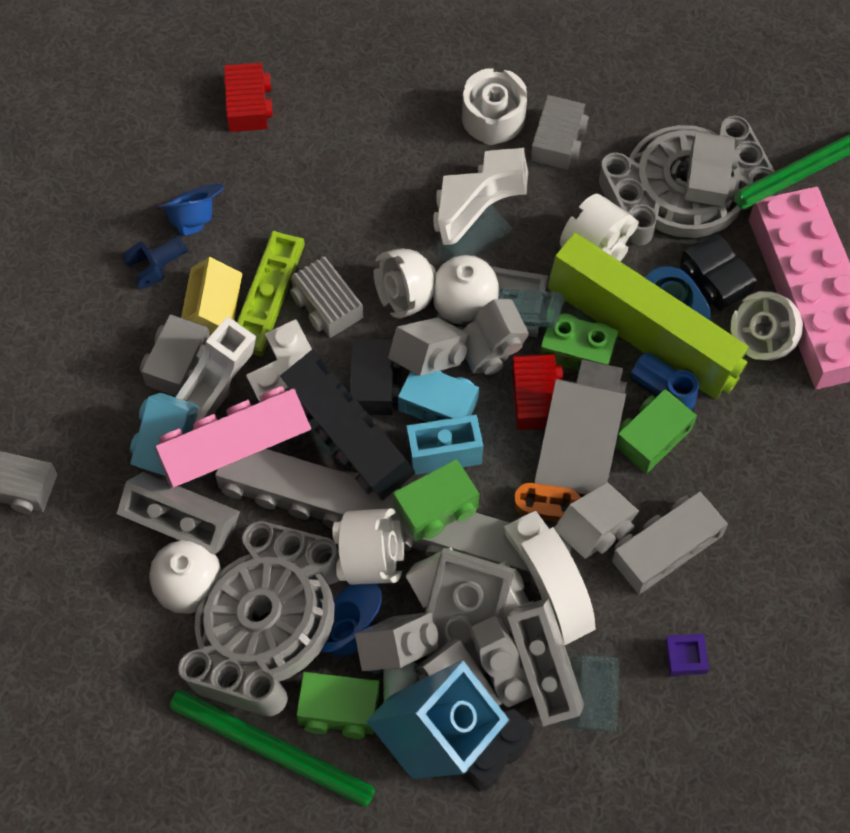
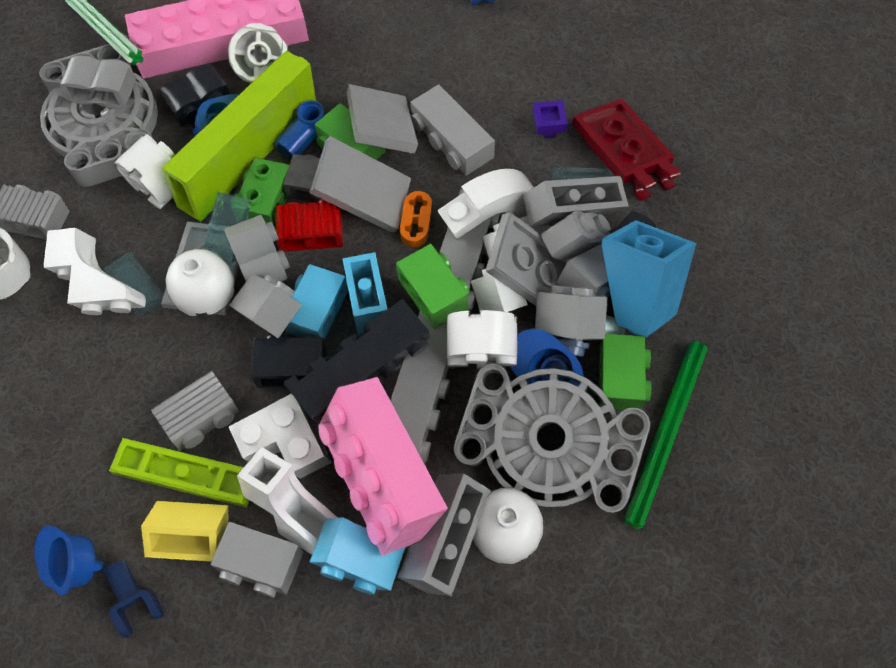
camera: 90 degrees left, 0 degrees up
(404, 281) = (188, 334): white cylinder -> none
(597, 520) = (439, 172): light grey brick -> none
(651, 747) = (627, 147): none -> dark red tile
(674, 458) = (381, 119): none -> light grey tile

